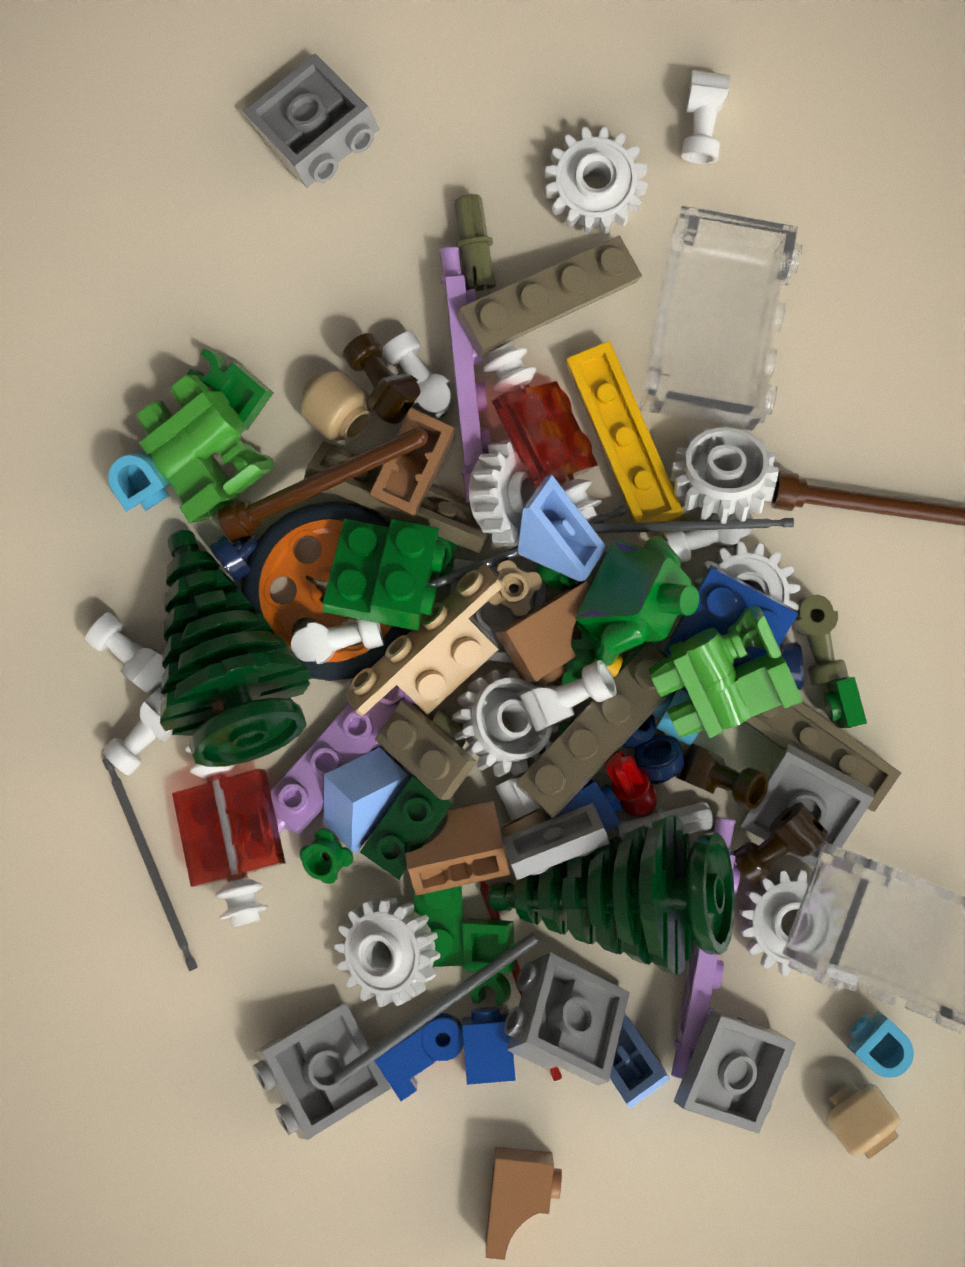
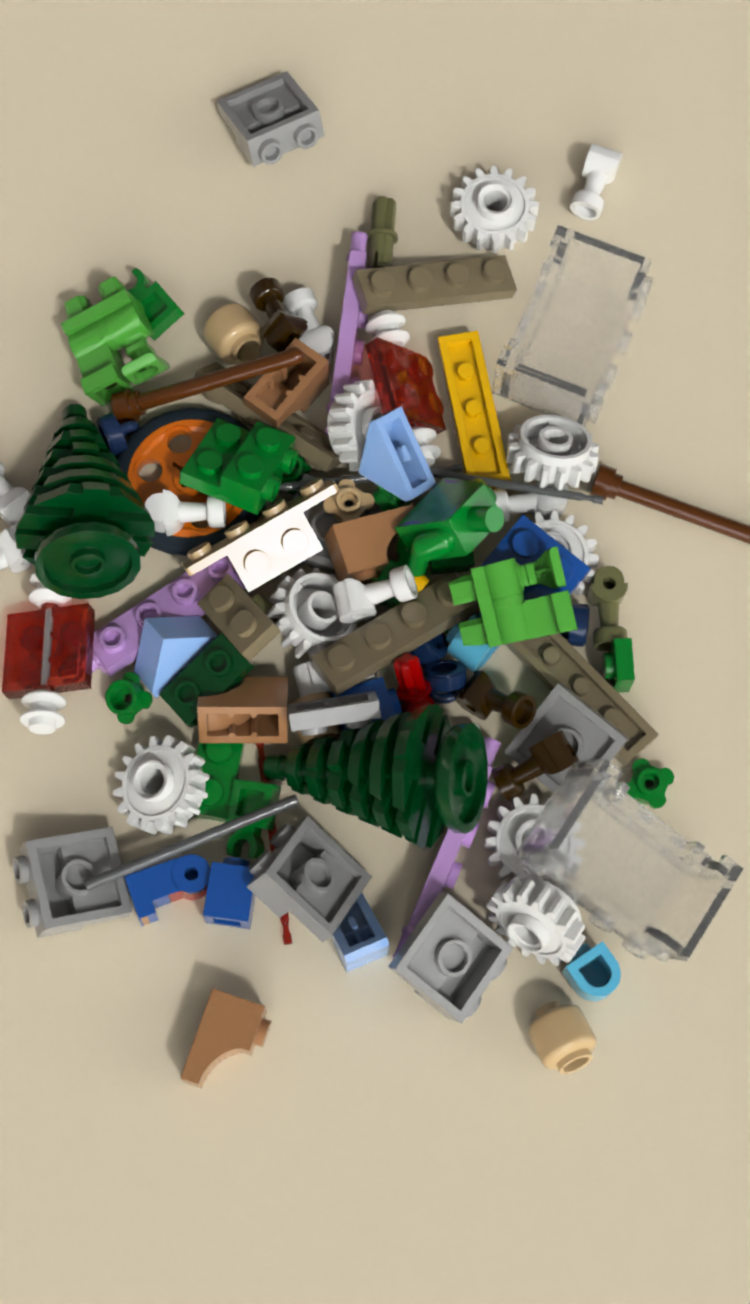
camera: 10 degrees right, 15 degrees down
(137, 481) = (51, 356): medium azure plate -> none
(816, 1012) = (537, 919): none -> white gear
(886, 825) = (661, 780): none -> green plate

